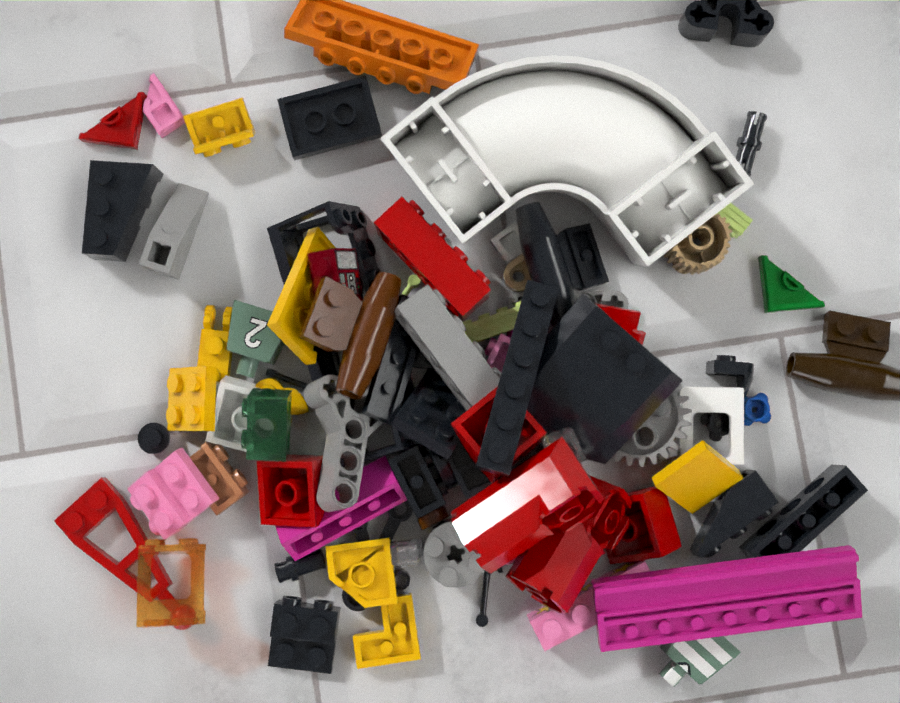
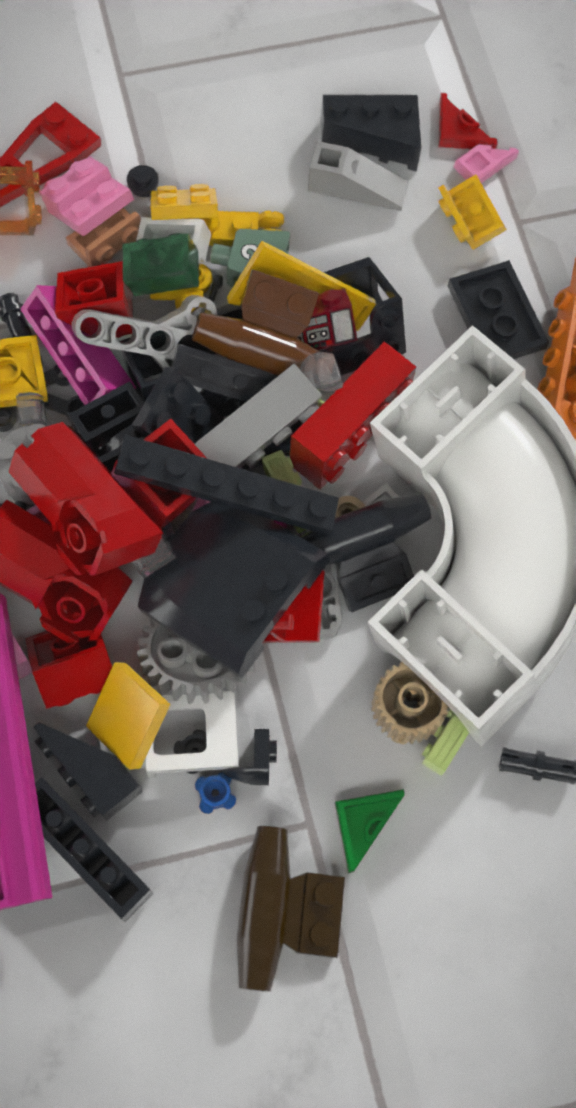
camera: 80 degrees right, 15 degrees down
(403, 283) = (322, 371): none -> clear brick

